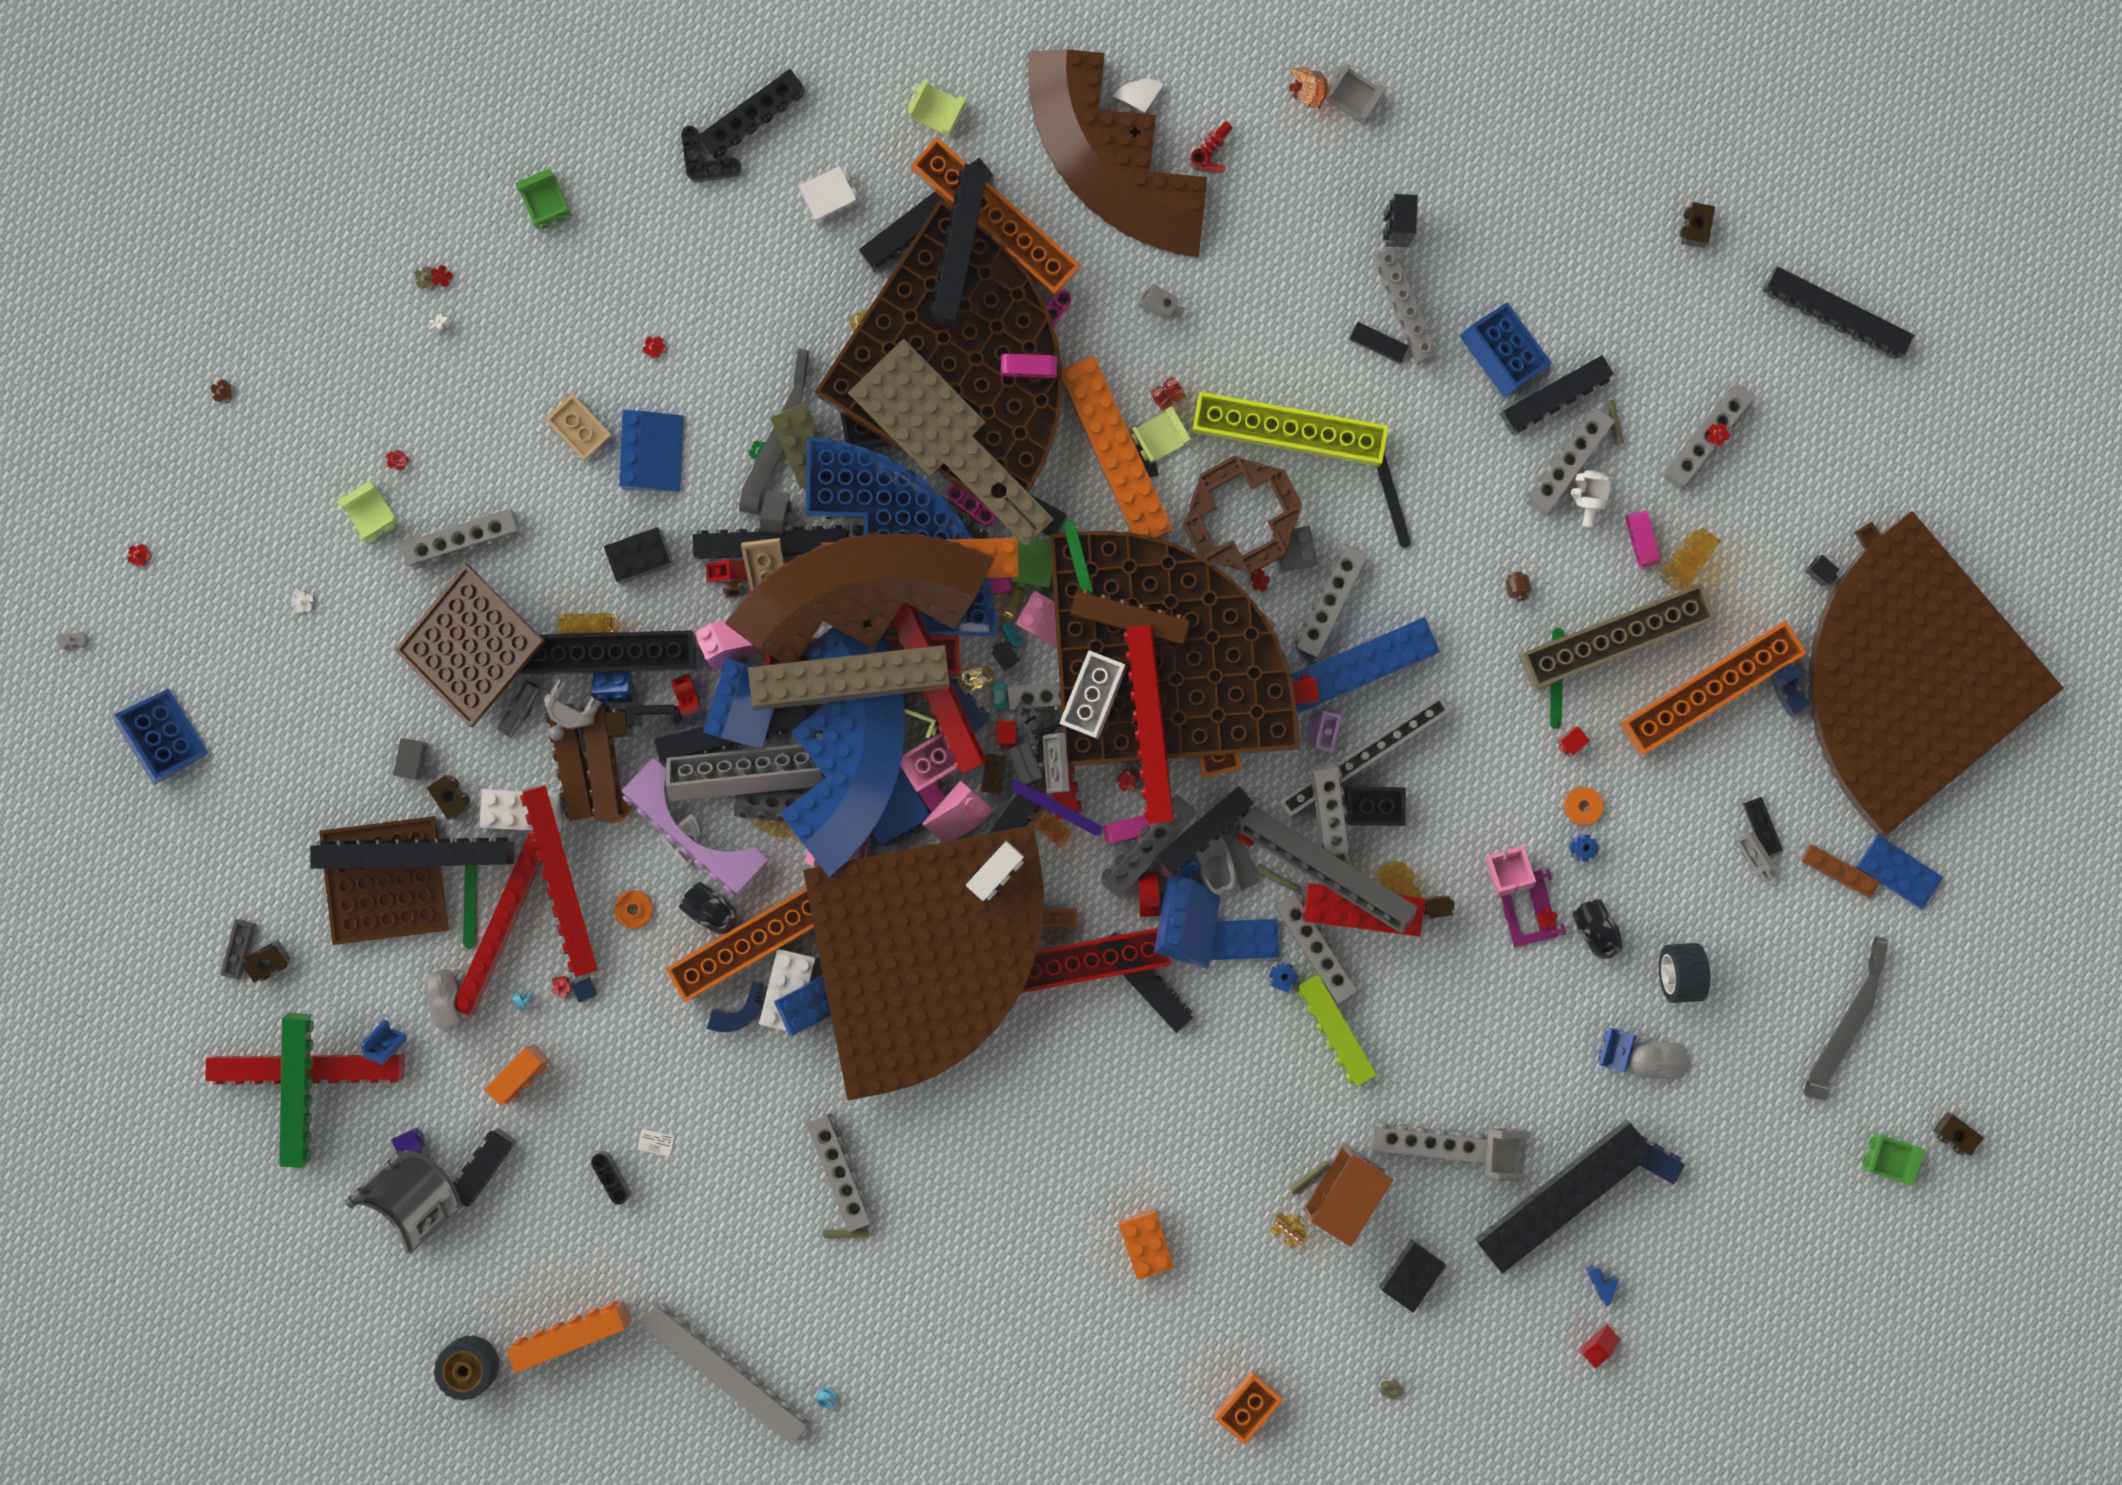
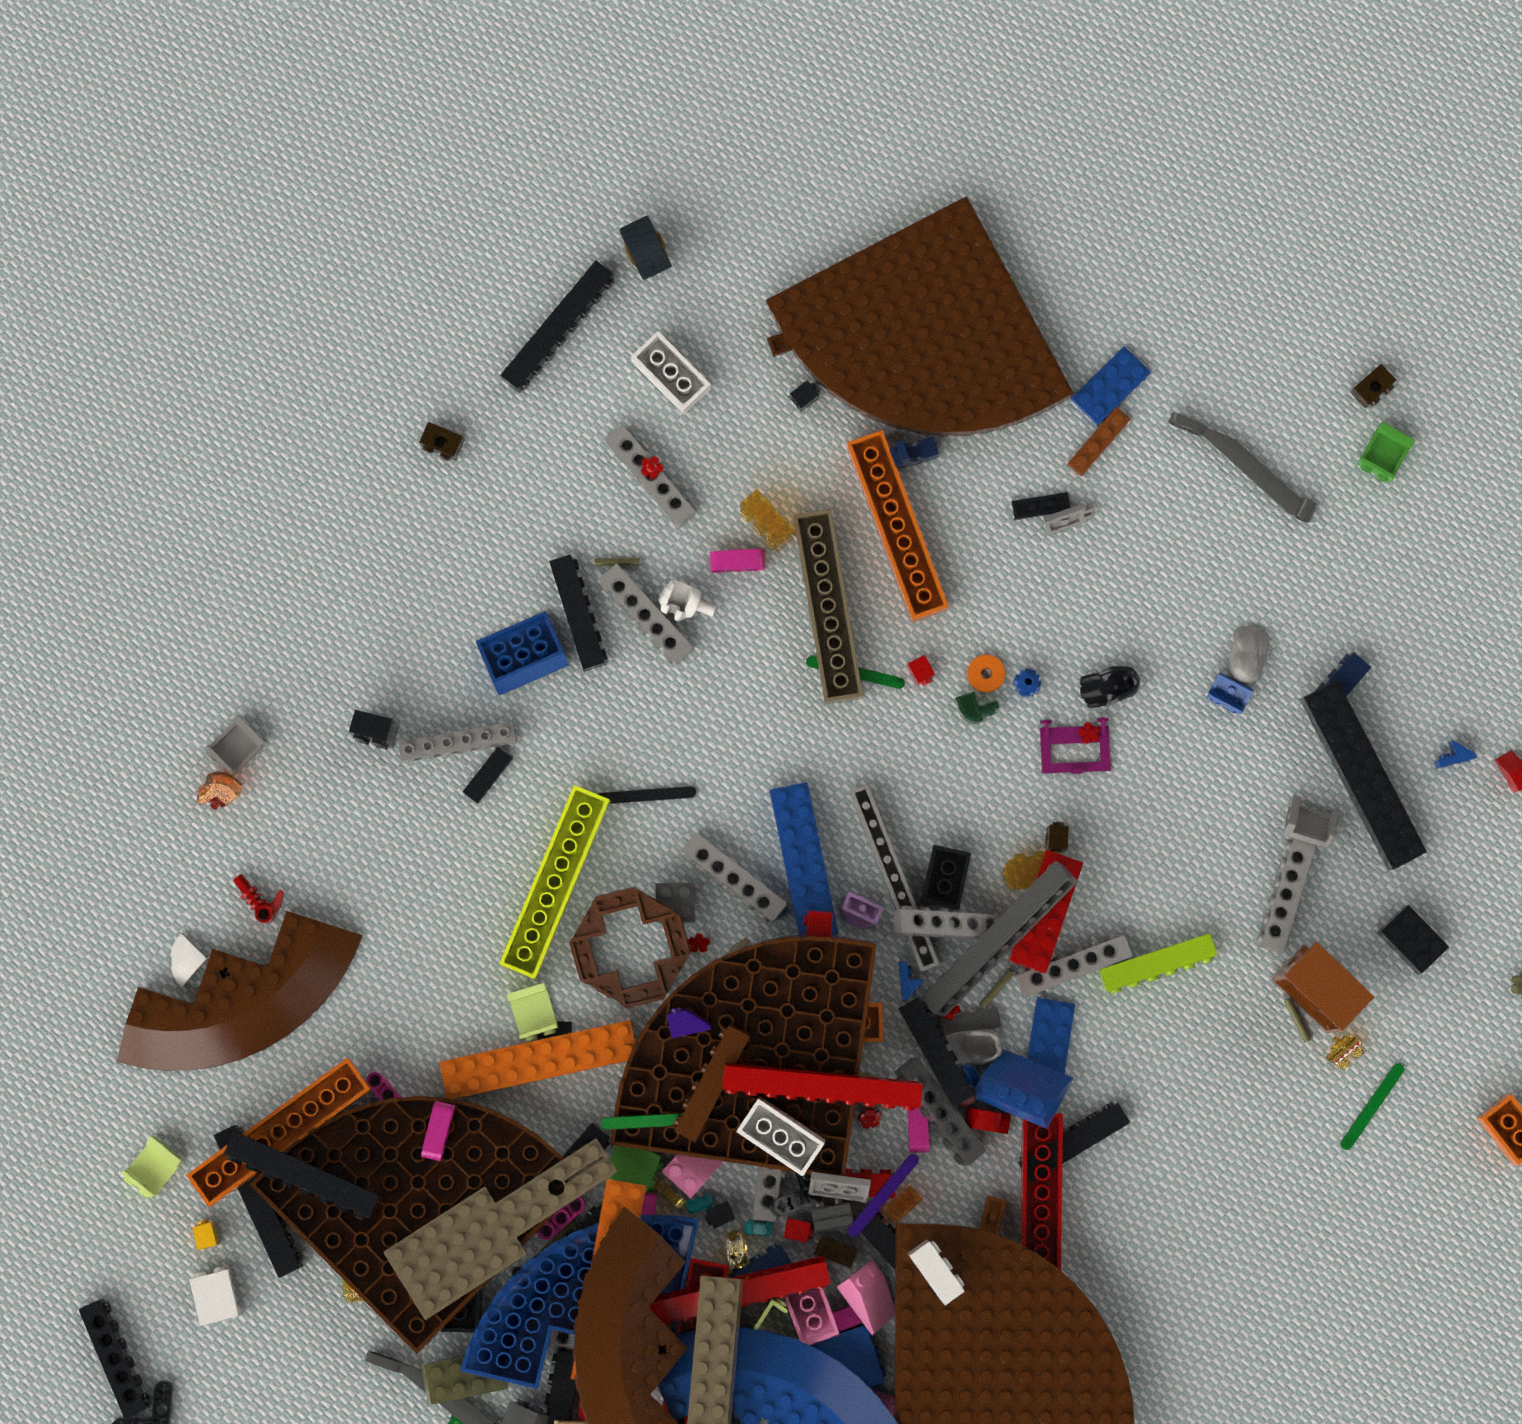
camera: 80 degrees left, 5 degrees down
(884, 172) = (205, 1234): none -> yellow brick
(1146, 1244) = (1333, 1197): orange brick -> none
(1153, 302) = (395, 989): light grey torso -> none
(1169, 392) = (493, 997): clear red wheel -> none
(1183, 579) = (686, 1022): none -> dark purple slope
(1240, 1266) = (1372, 1106): none -> green piece
(1261, 791) = (907, 986): none -> blue slope
(1283, 984) = (1102, 1004): blue brick -> none
(1510, 873) = (1037, 760): bright pink piece -> none
(1518, 586) = (758, 690): reddish brown head -> none
(1542, 800) = (971, 712): none -> clear green brick
(1684, 972) = (1168, 613): black wheel -> none
(1816, 433) = (670, 372): none -> white brick
(1939, 380) = (645, 247): none -> black wheel

